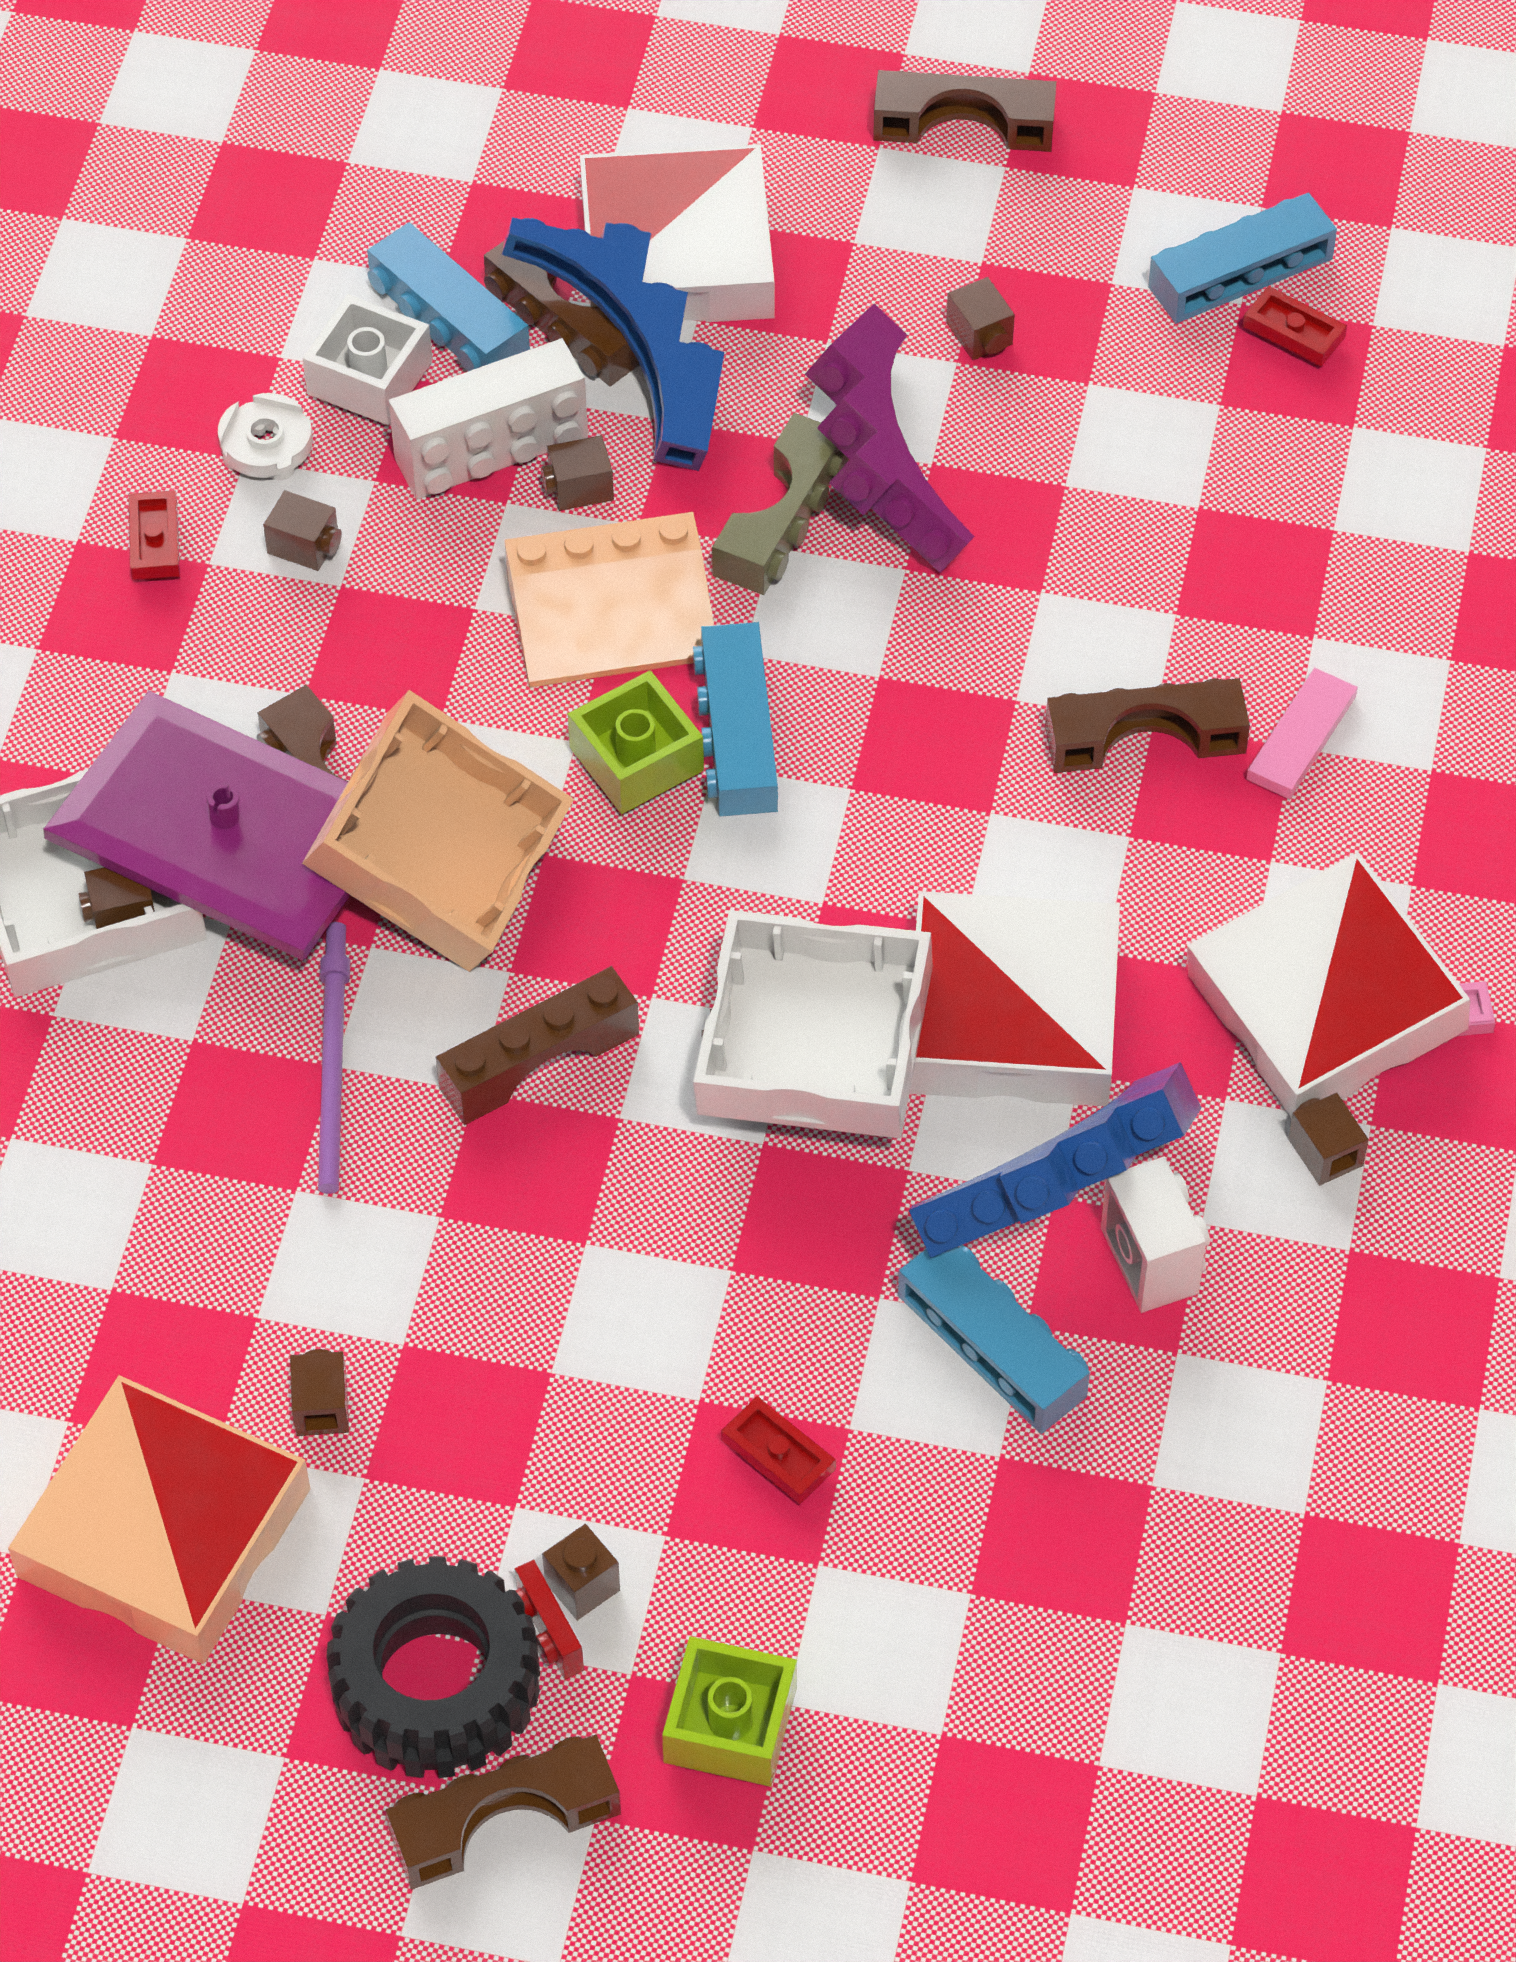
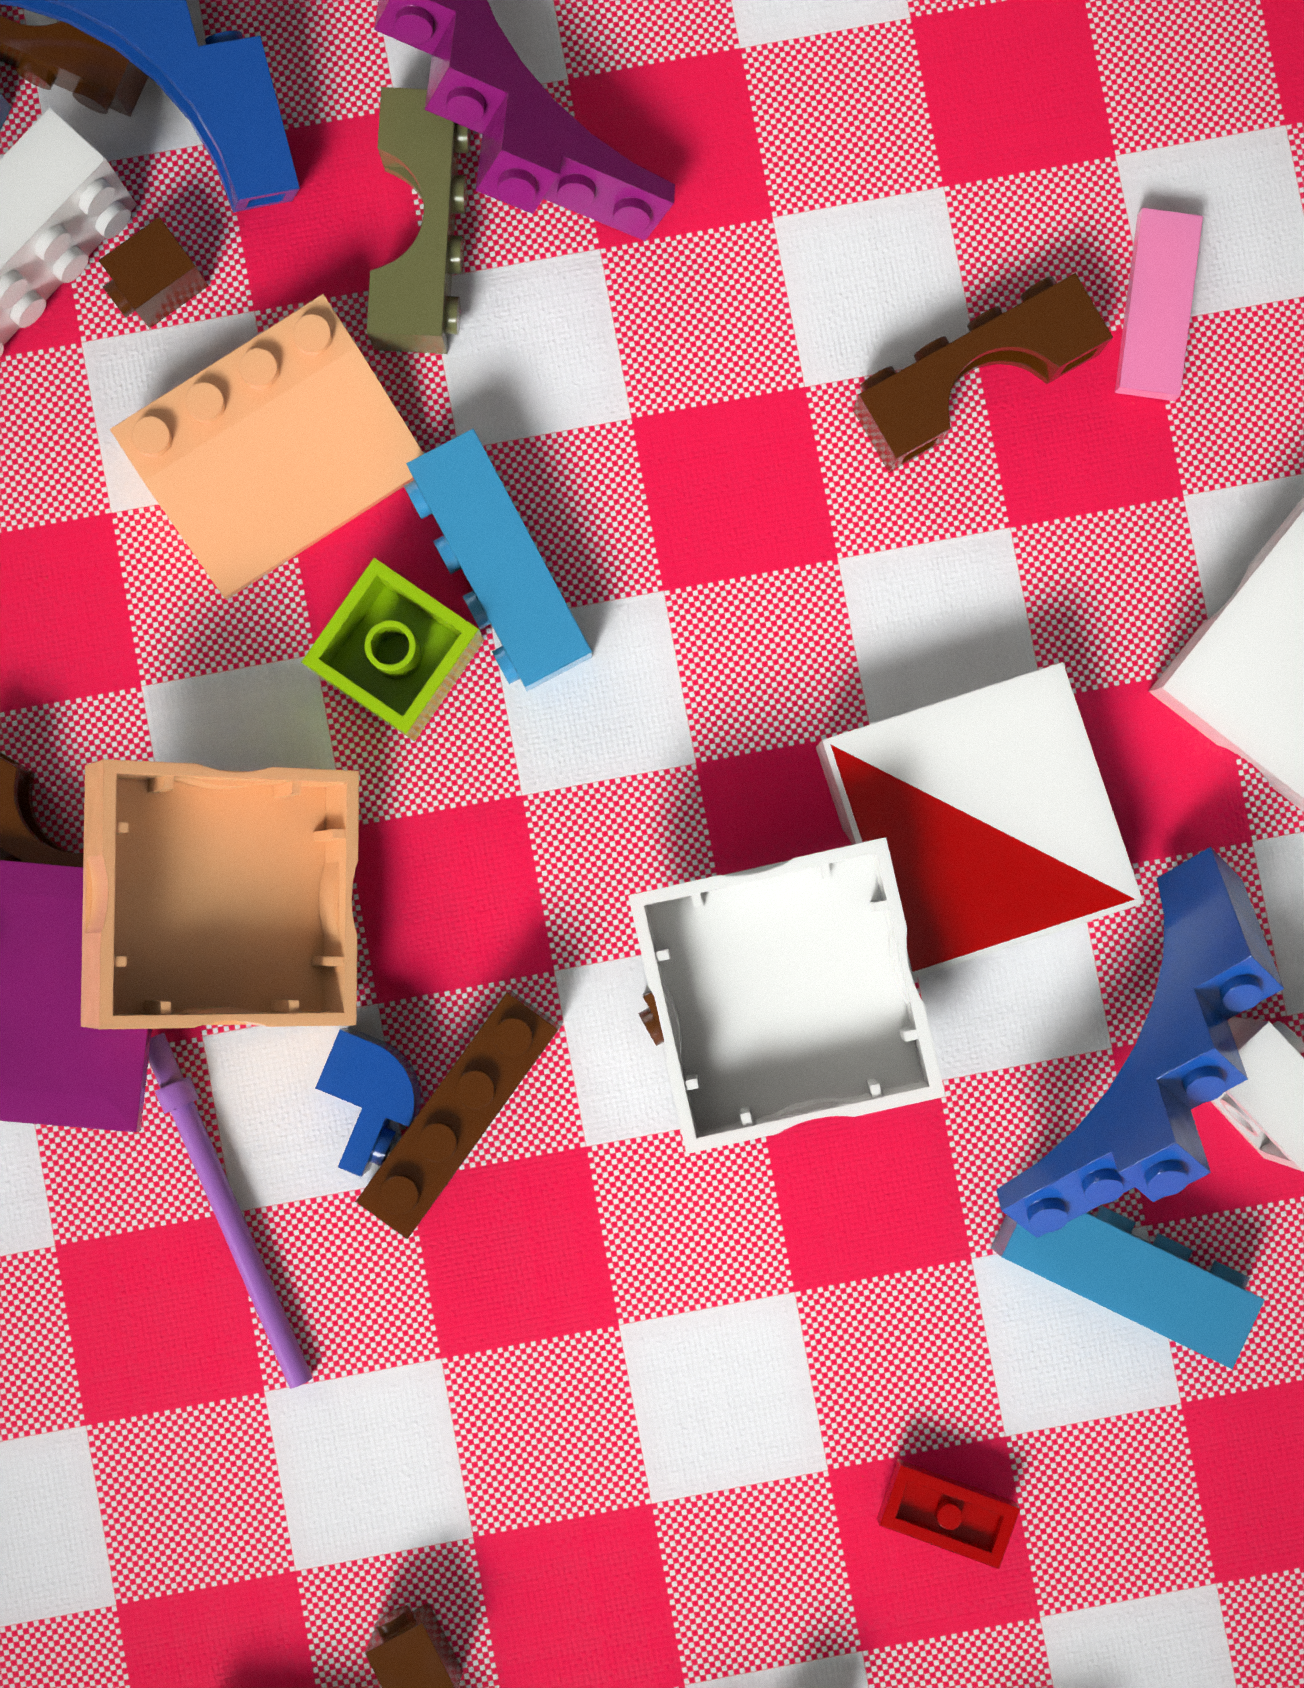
camera: 30 degrees left, 30 degrees up
(477, 999) = (379, 1082): none -> blue brick

